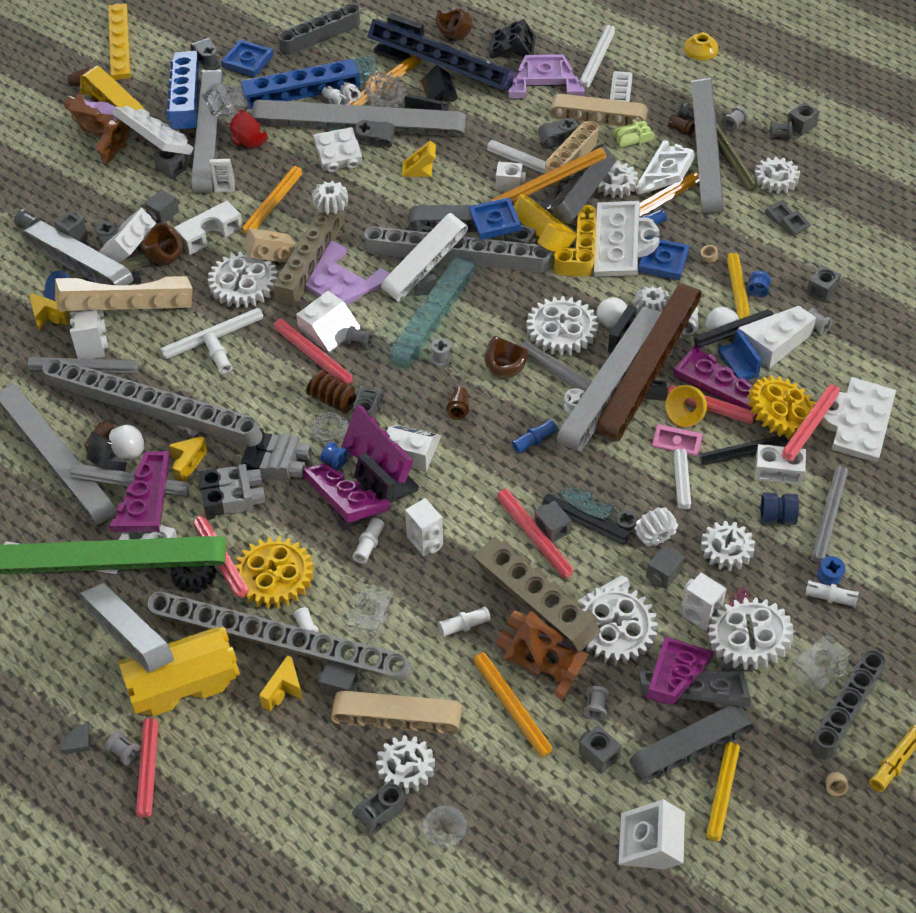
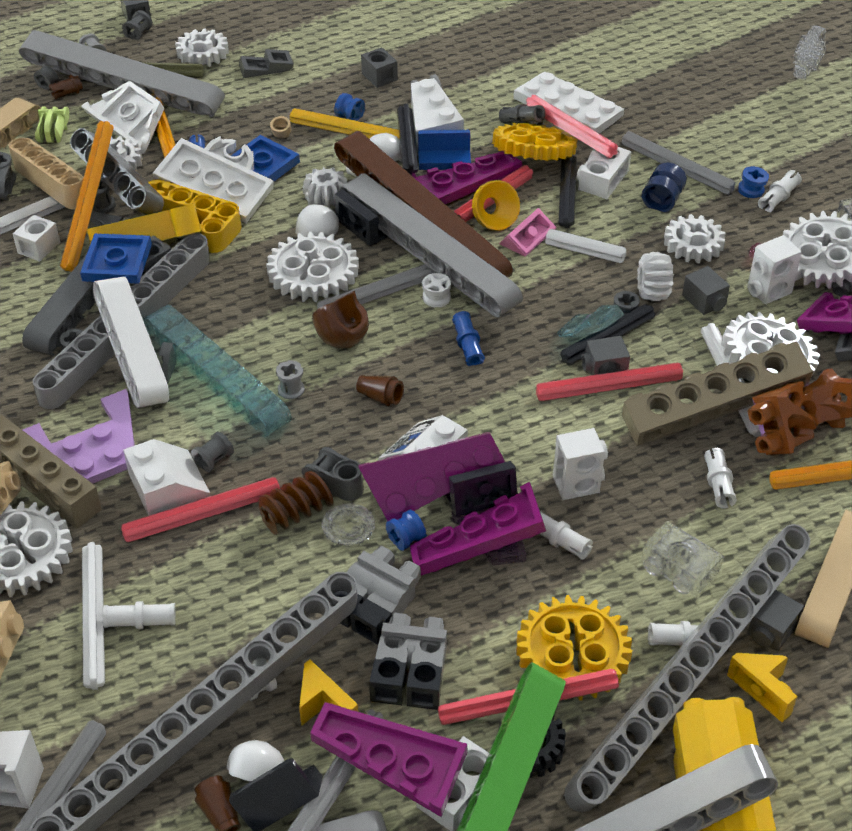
camera: 70 degrees left, 5 degrees down
(814, 389) = (522, 114): none -> dark grey pin

